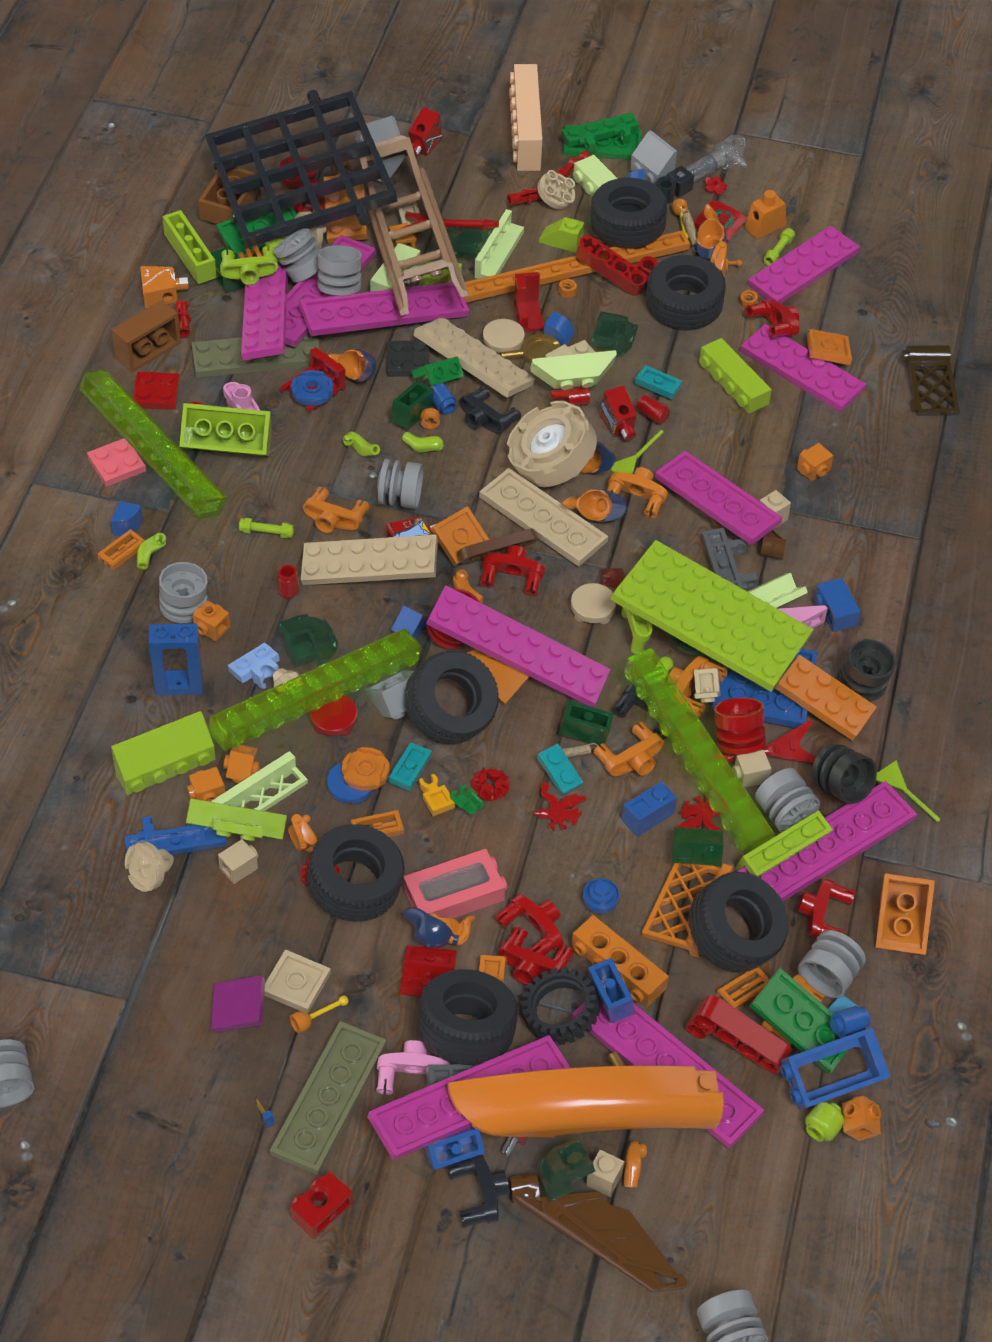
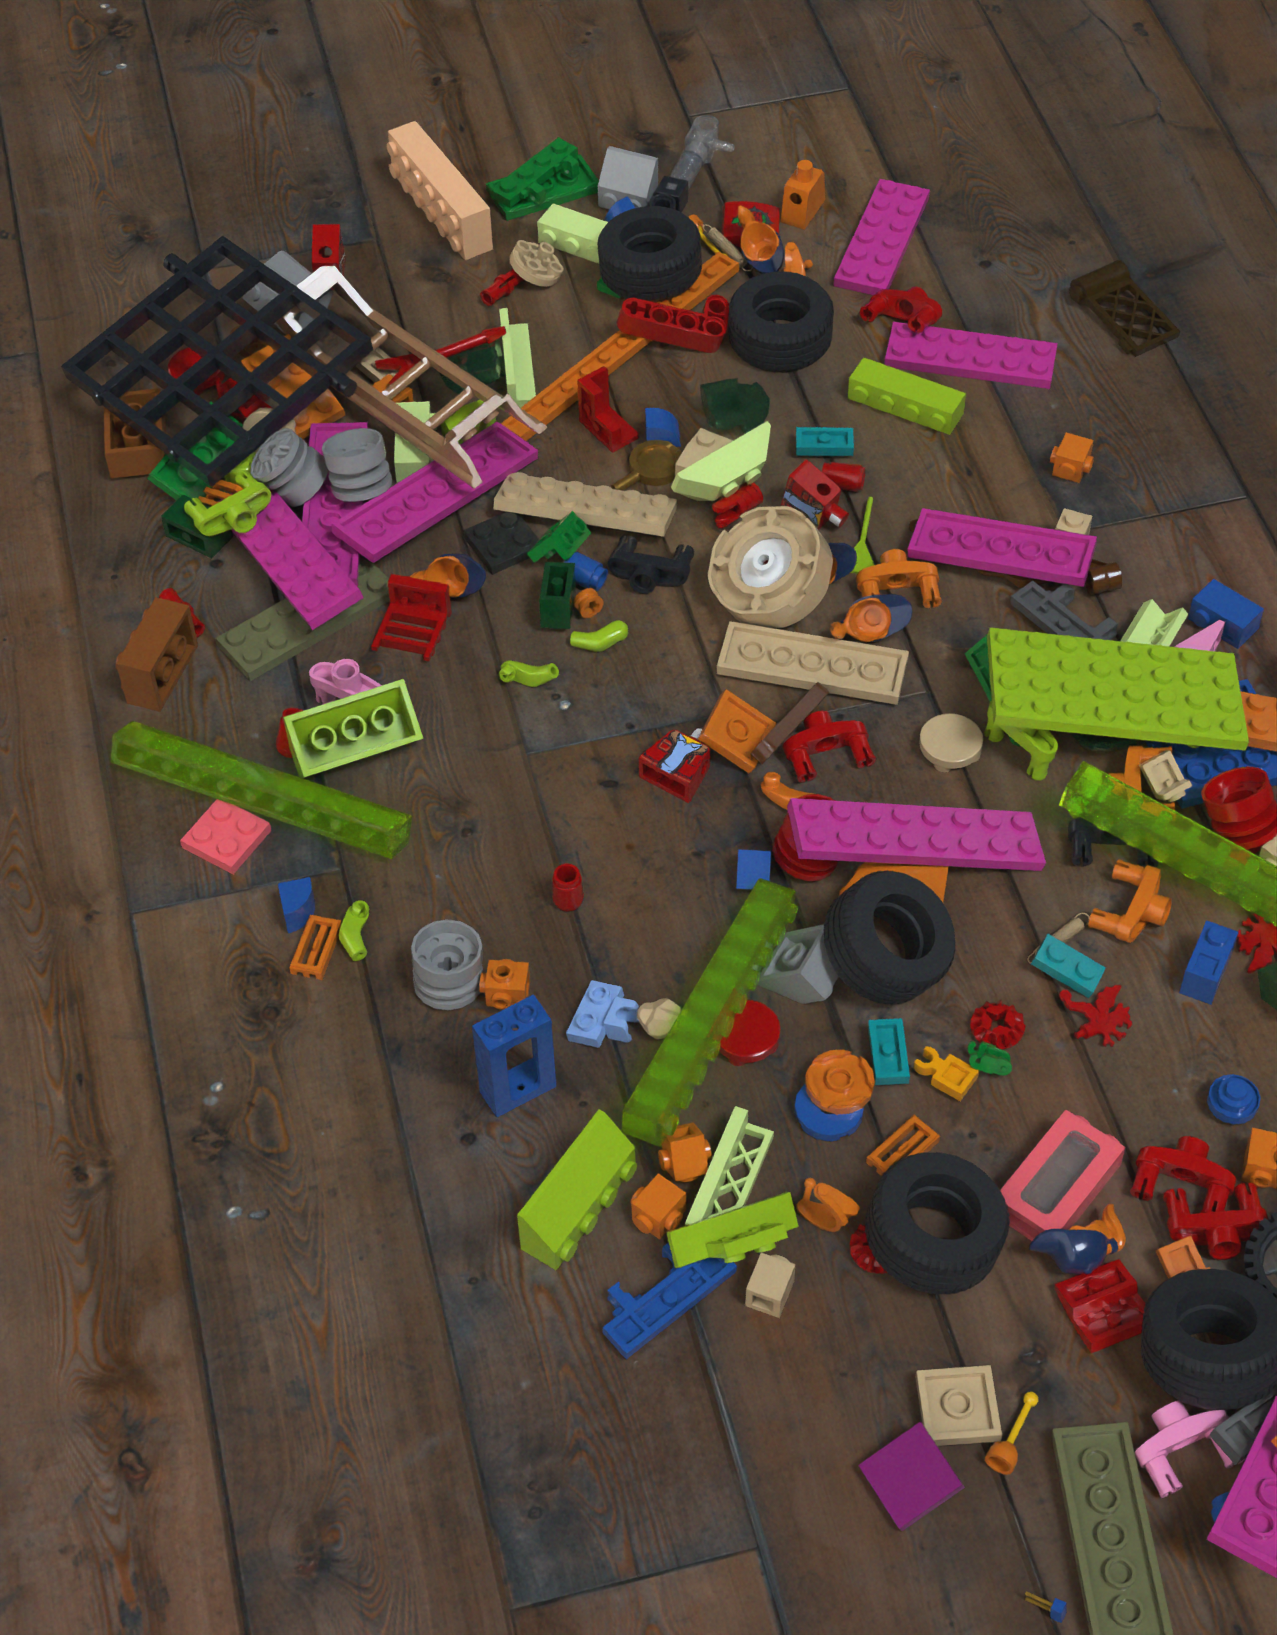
camera: 25 degrees left, 0 degrees up
(147, 865) = (664, 1354): tan tile -> none
(156, 390) = (212, 718): red plate -> none
(161, 284) = (123, 583): orange torso -> none
(189, 247) = (129, 517): lime brick -> none
(247, 525) = (457, 840): lime bar -> none
(307, 639) = (647, 950): clear green brick -> none
(316, 396) = (415, 641): blue tile -> none
(332, 516) = (557, 779): orange connector -> none
(369, 559) = (650, 811): tan plate -> none
(399, 483) = (613, 700): light grey wheel -> none
(503, 335) = (601, 463): tan tile -> none
(563, 234) = (581, 312): lime slope -> none
(565, 171) = (536, 214): red piece -> none
(567, 293) = (633, 382): orange axle -> none
(585, 723) = (1059, 893): dark green brick -> none
(612, 577) = (947, 699): clear red slope -> none
(715, 185) = (712, 185): red plant -> none
(748, 294) = (850, 295): orange axle -> none
(786, 237) = (840, 239): lime bar -> none
(829, 346) = (986, 317): orange tile -> none

